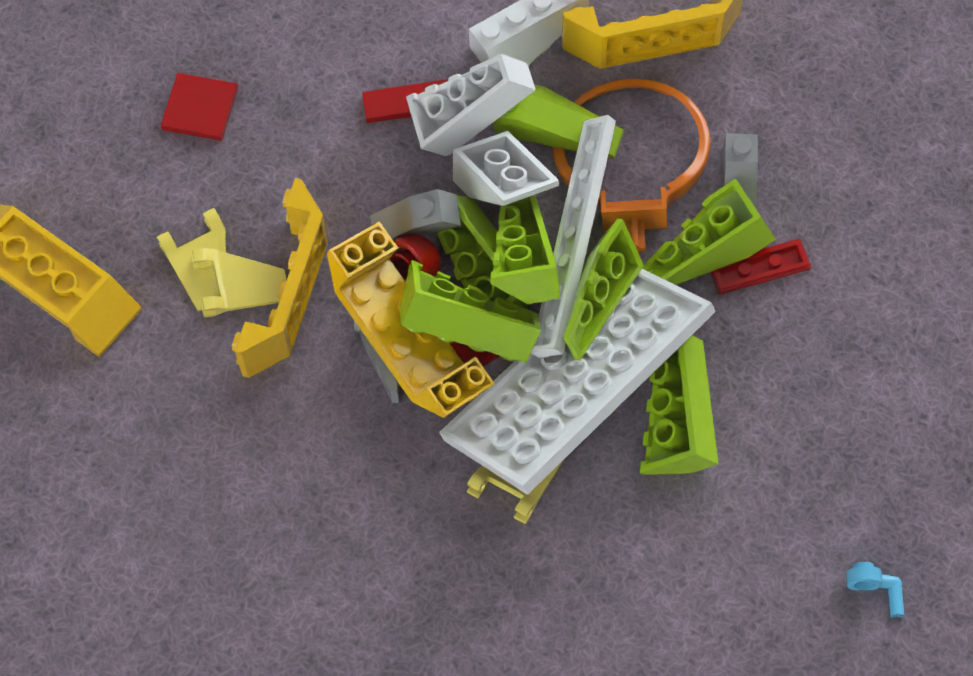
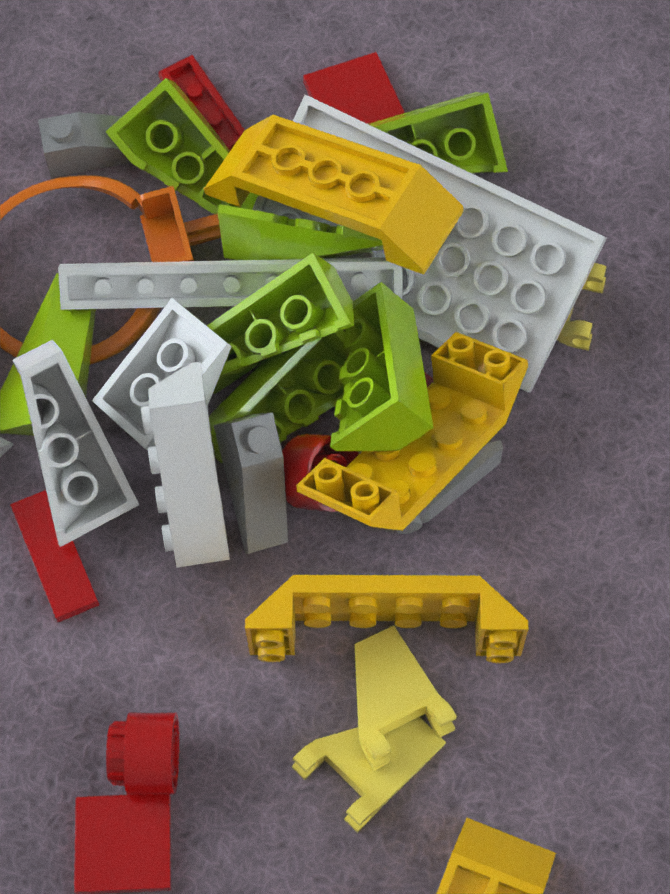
camera: 105 degrees left, 0 degrees up
(245, 121) = (144, 753): none -> red piece
(436, 161) = (187, 468): none -> white wedge
(616, 309) = (343, 185): none -> yellow slope
(743, 377) = (356, 89): none -> red tile

